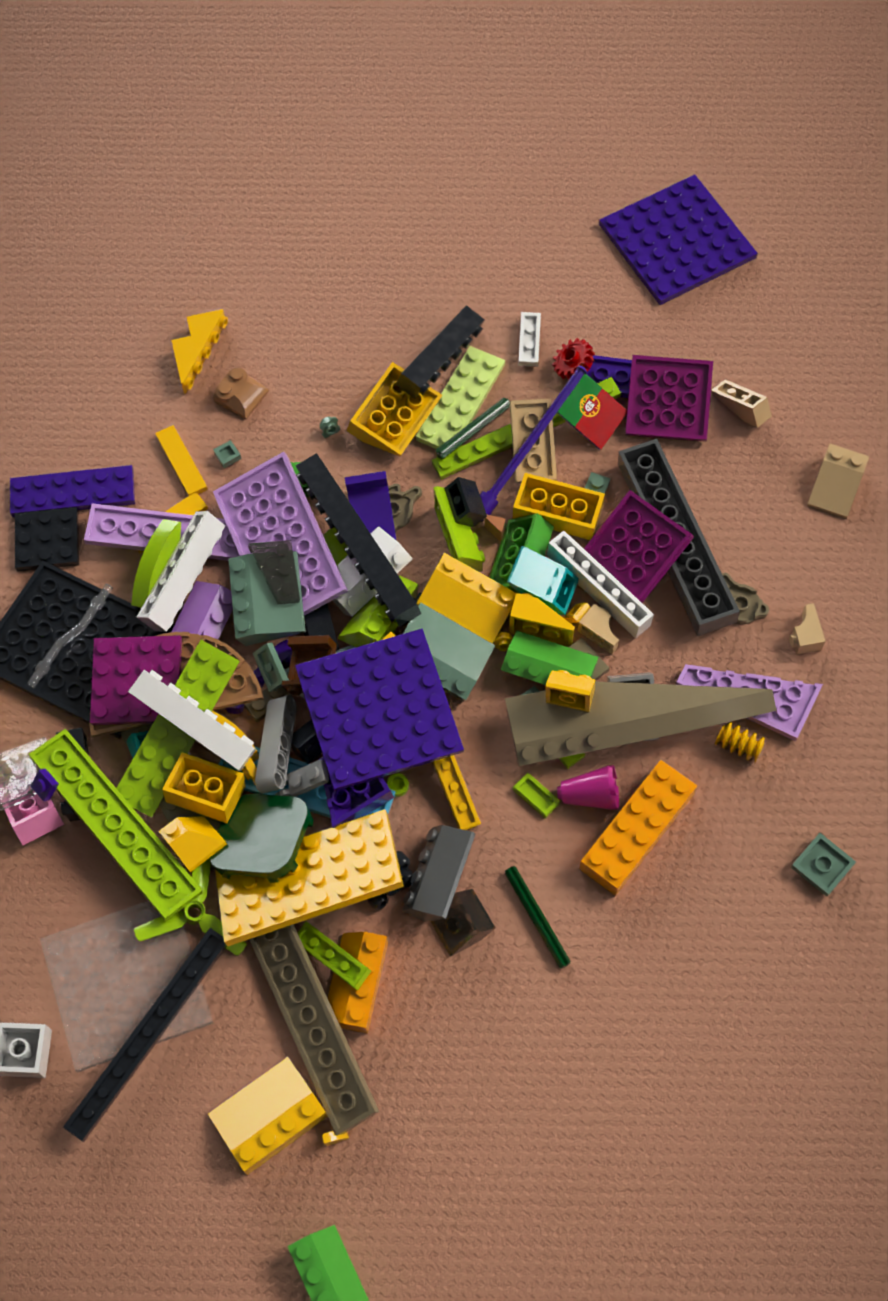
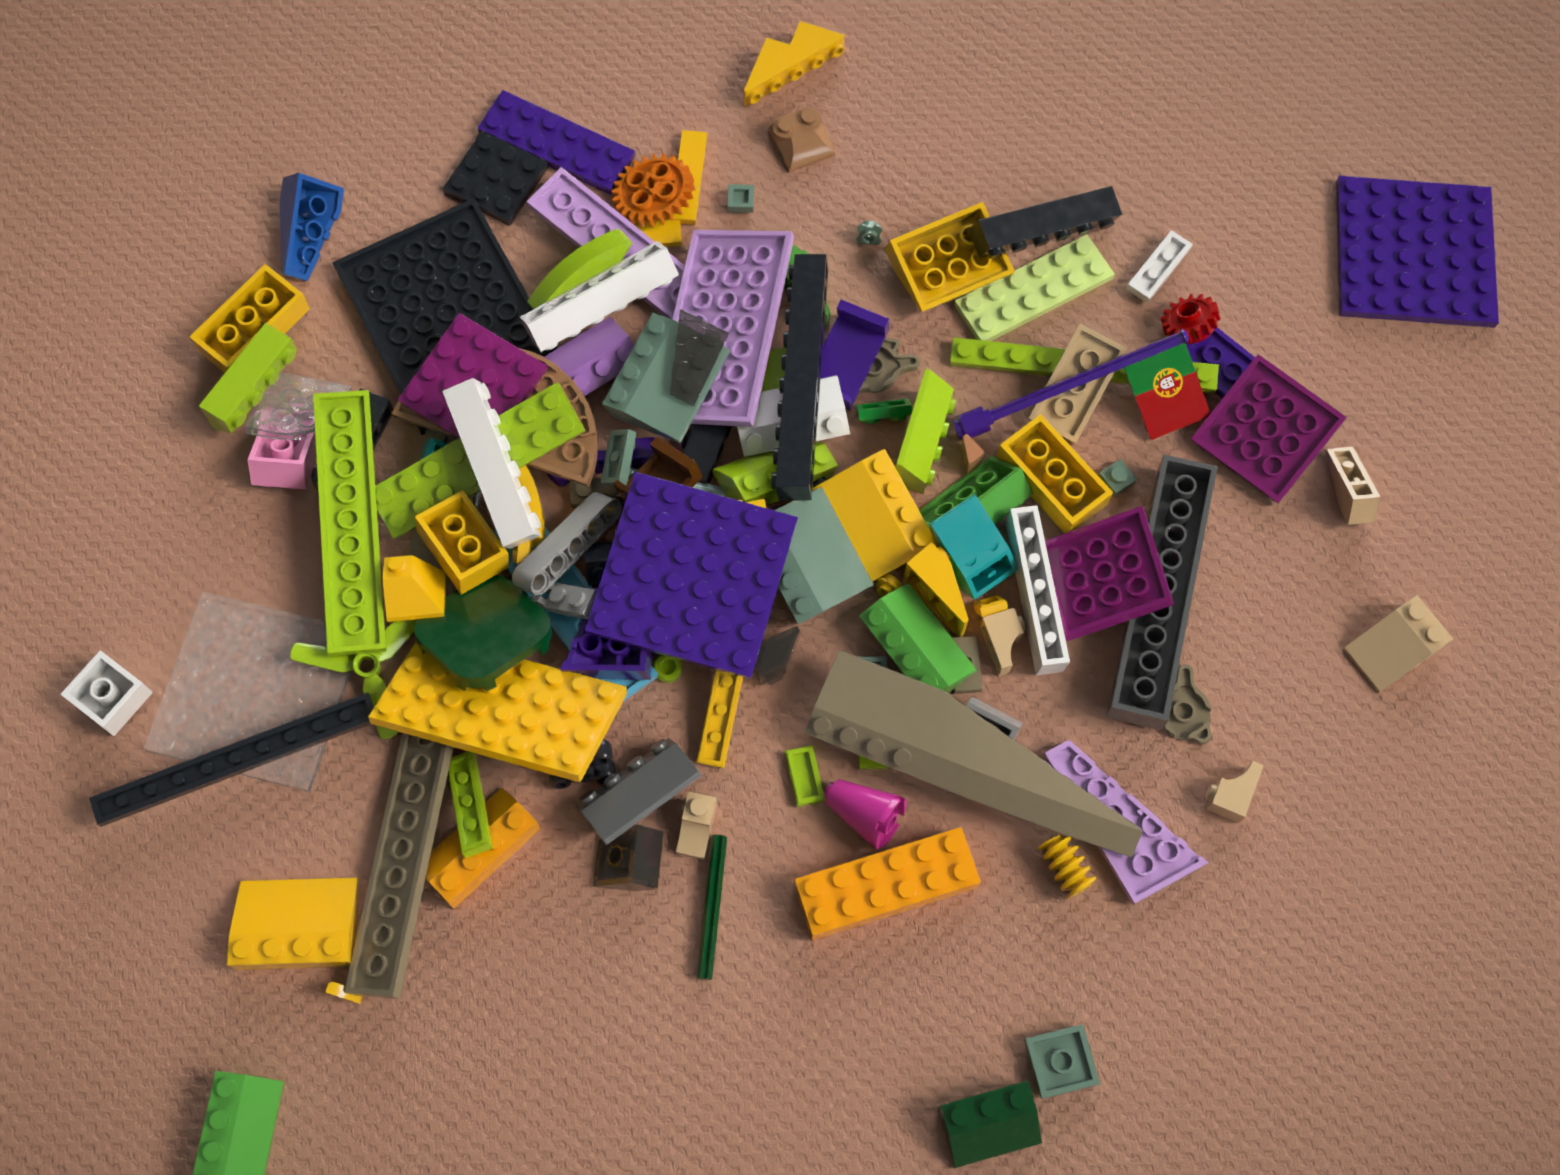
camera: 30 degrees right, 5 degrees up
(44, 666) = (493, 278): clear bar -> none
(44, 784) = (306, 435): dark purple plate -> none
(165, 482) = (653, 190): none -> orange gear
(426, 528) = (892, 409): none -> green plate
(465, 502) = (950, 406): black brick -> none
(466, 729) = (776, 656): none -> clear smoke slope
(472, 428) = (1021, 329): dark green axle -> none
(490, 871) = (696, 825): none -> tan arch
(570, 690) = (910, 686): yellow slope -> none
(808, 932) = (990, 1124): none -> dark green slope

